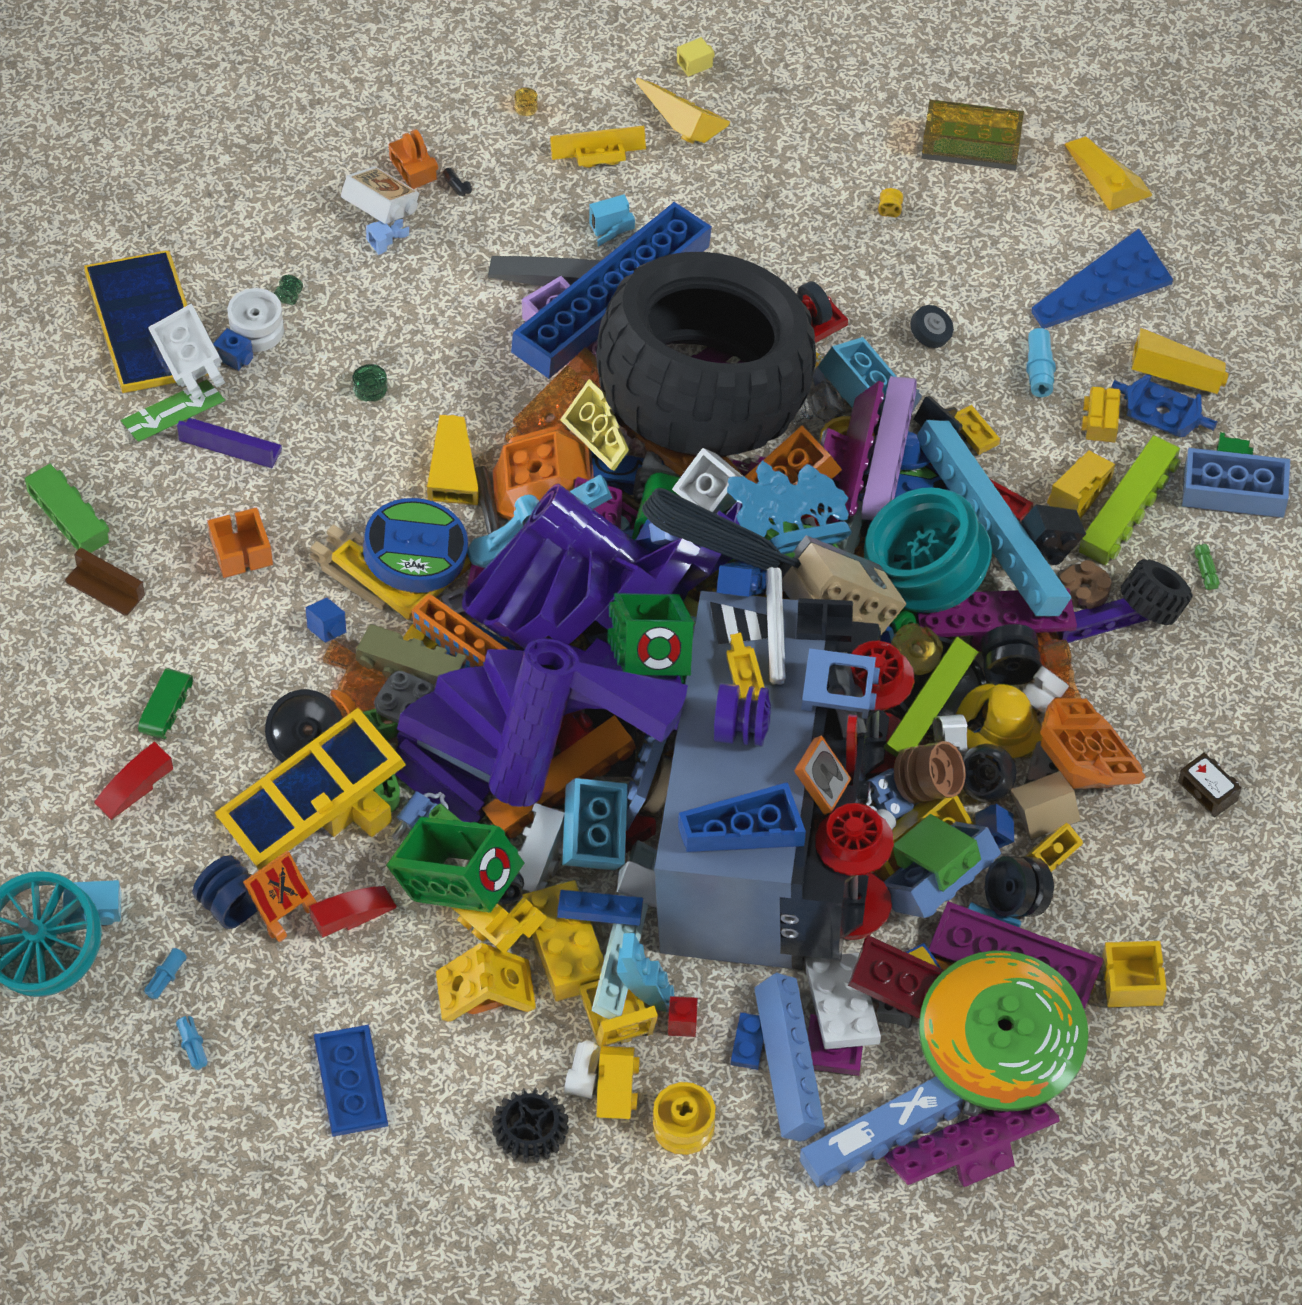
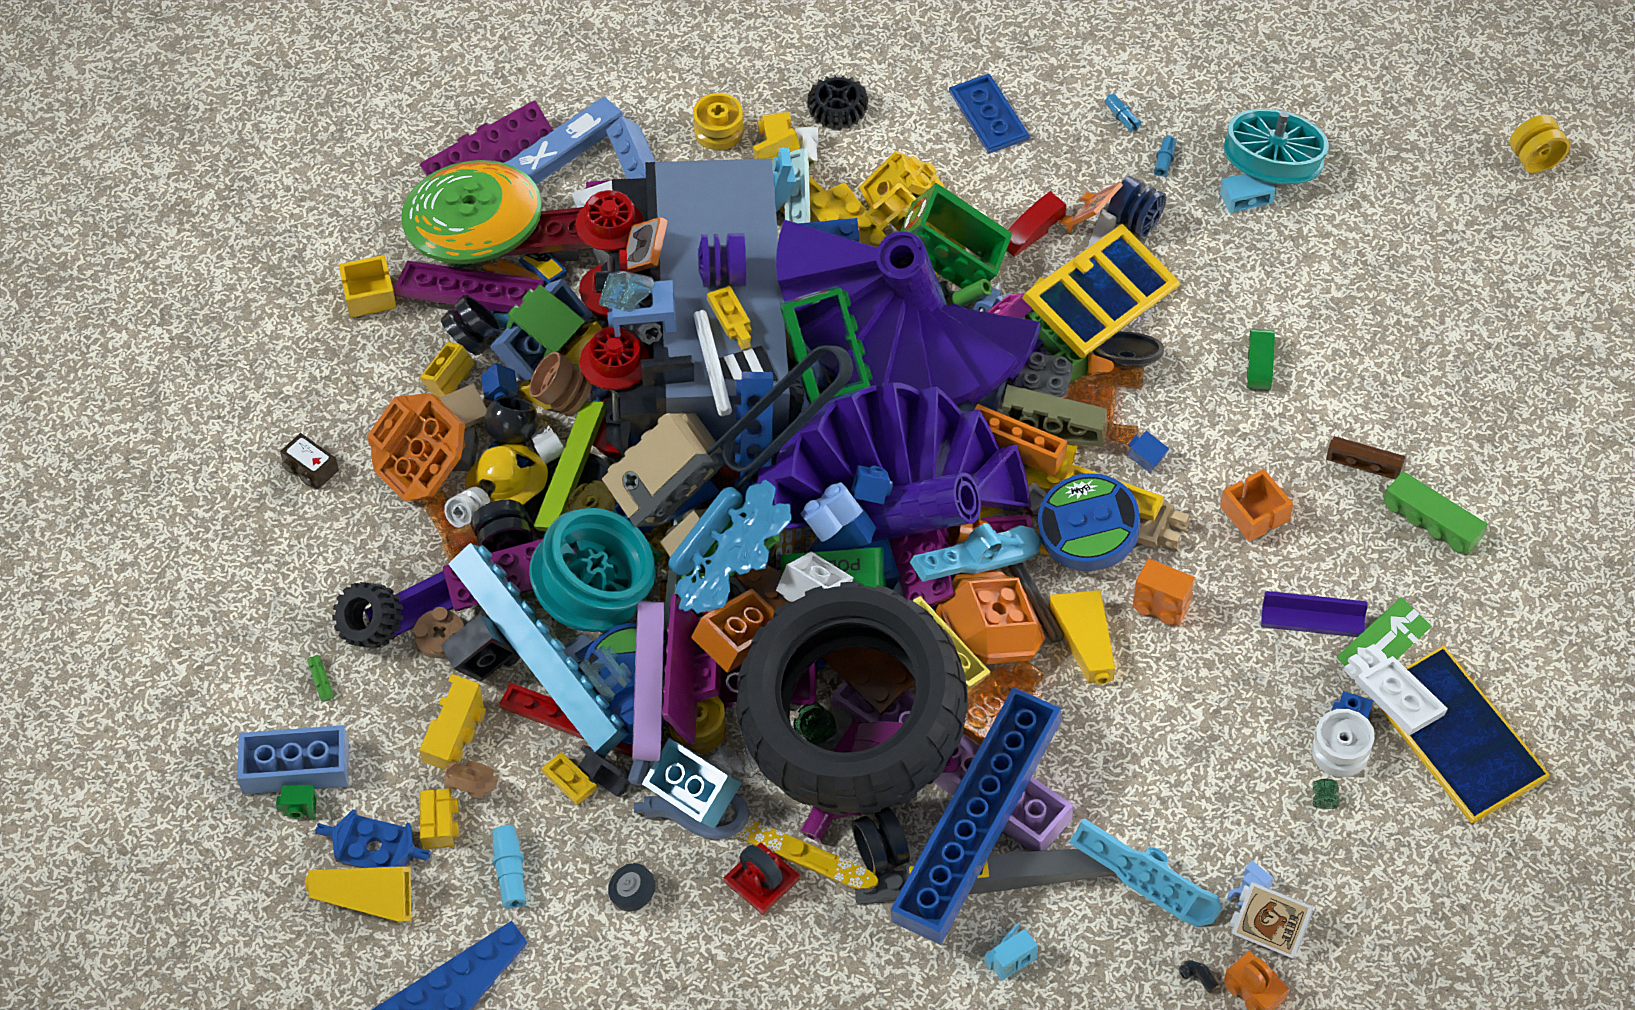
camera: 170 degrees right, 0 degrees up
(134, 780) = (1255, 290): red slope -> none
(367, 472) = (1163, 592): none -> orange piece
(377, 381) = (1199, 696): clear green wheel -> none
(422, 783) = (1011, 306): none -> dark pink slope
(471, 249) = (1148, 875): none -> medium azure piece
(634, 539) = (871, 484): none -> blue brick
(744, 822) = (702, 182): blue wedge -> none
(851, 687) = (625, 290): none -> clear light blue slope
(928, 470) = (607, 658): none -> clear light blue brick
(1054, 442) = (471, 778): none -> medium nougat plate
(1129, 500) = (400, 728): lime brick -> none

